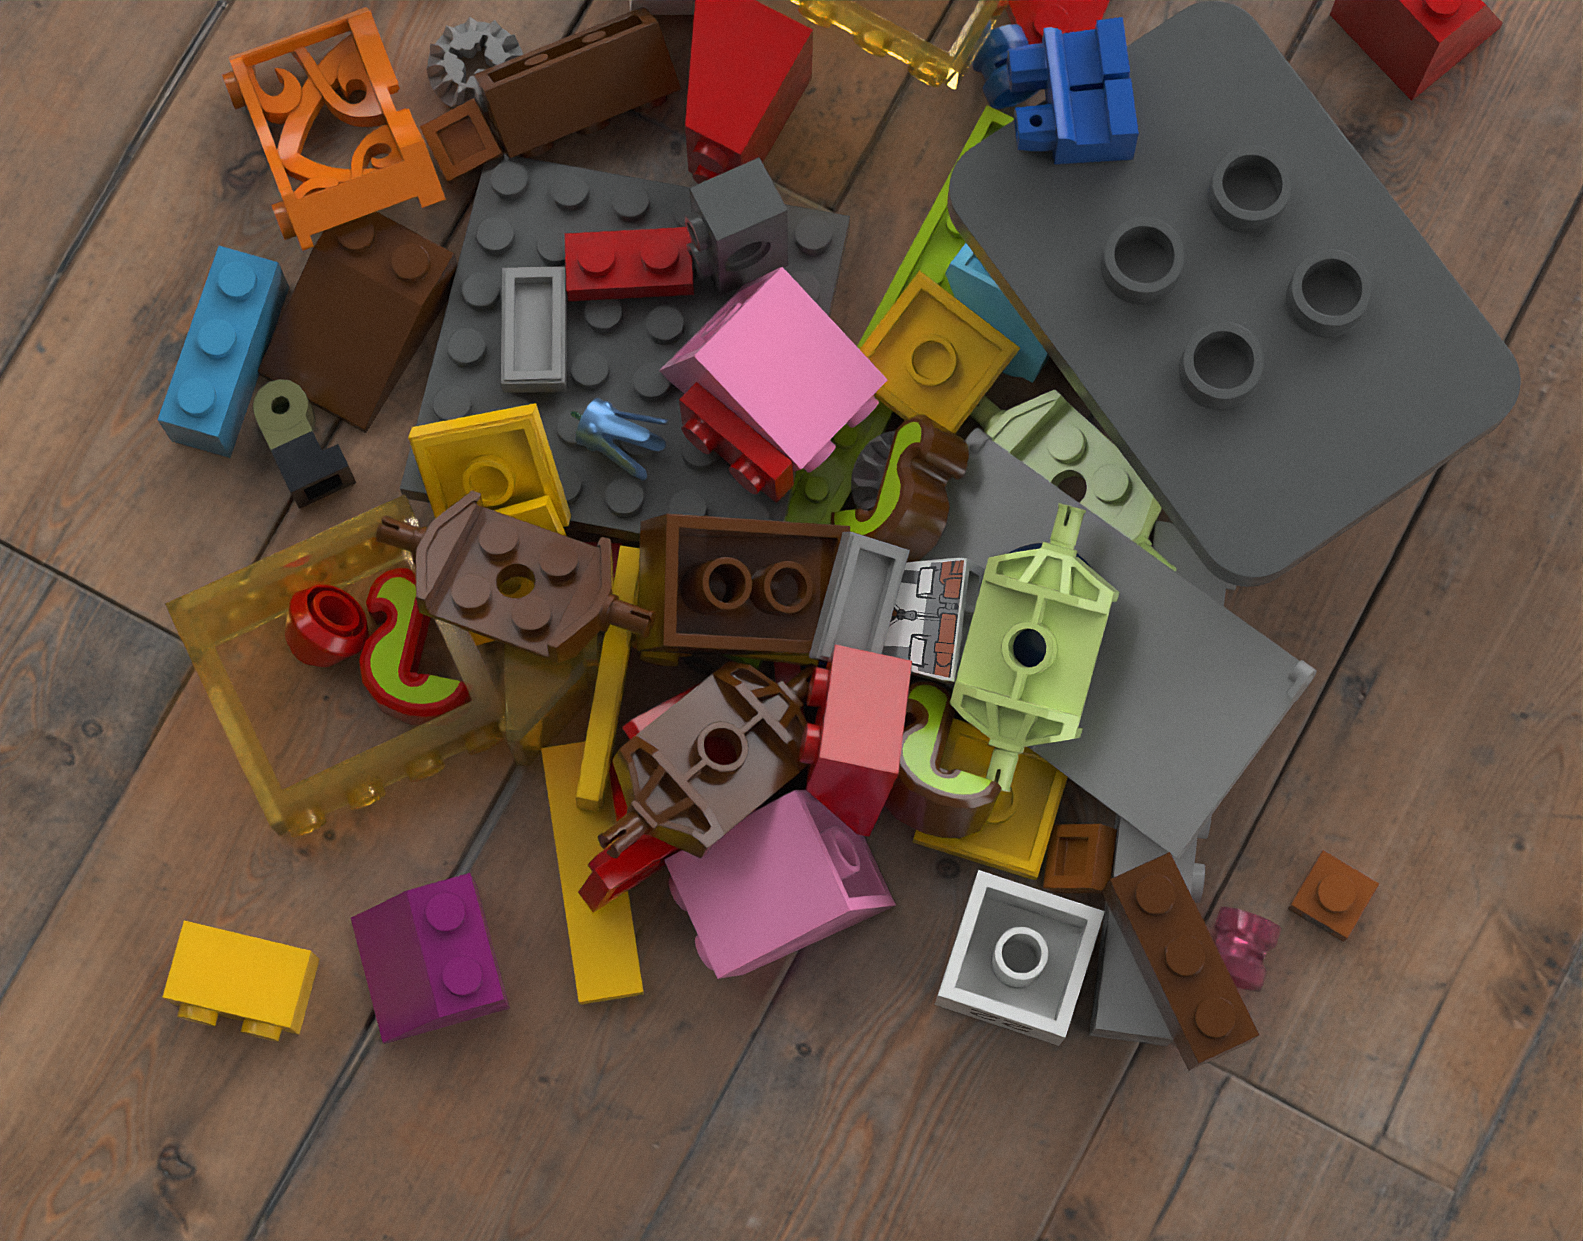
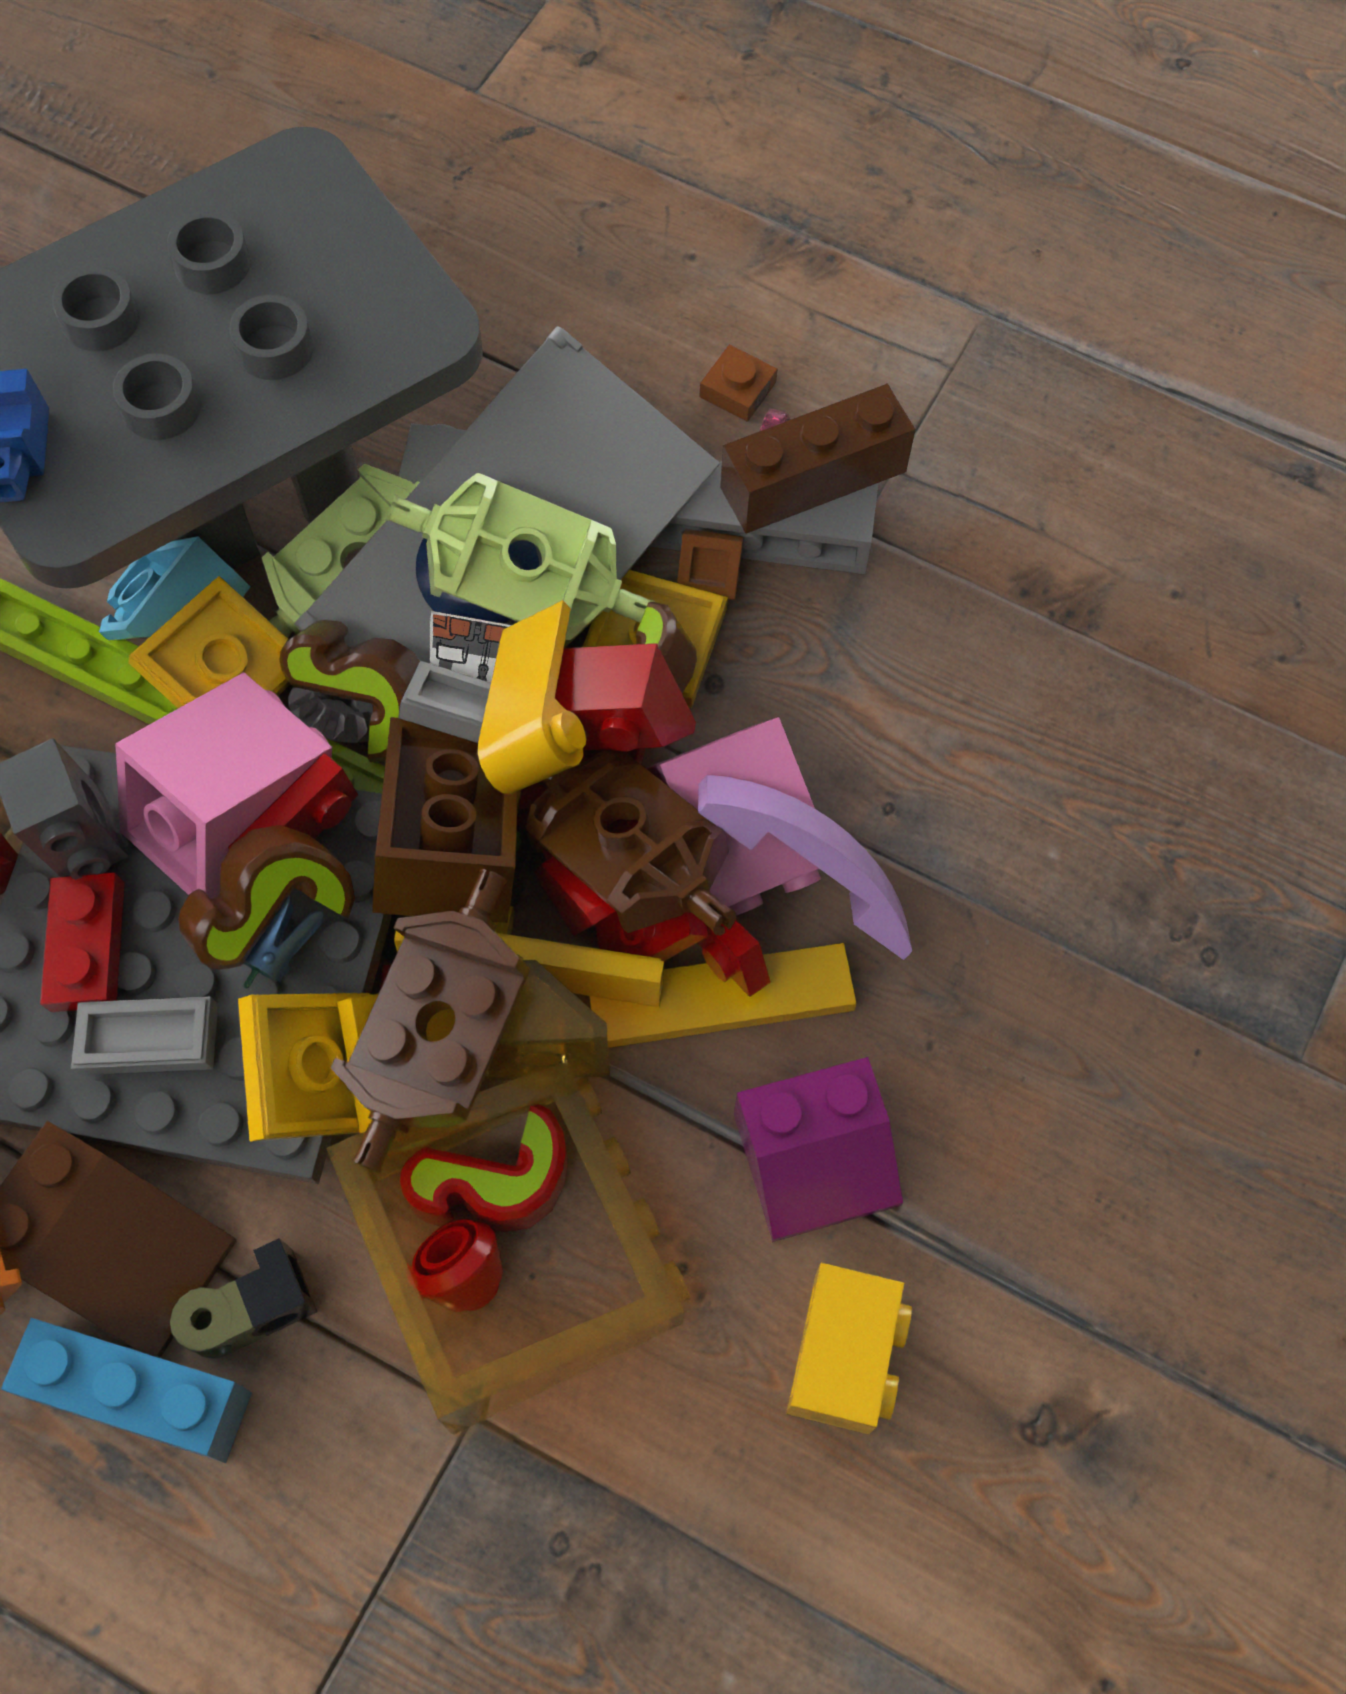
camera: 90 degrees left, 10 degrees down
(654, 411) = (253, 887): none -> reddish brown animal
(720, 949) = (753, 810): none -> lavender slope
(803, 645) = (524, 726): none -> yellow door
(1019, 958) = (806, 606): white brick -> none

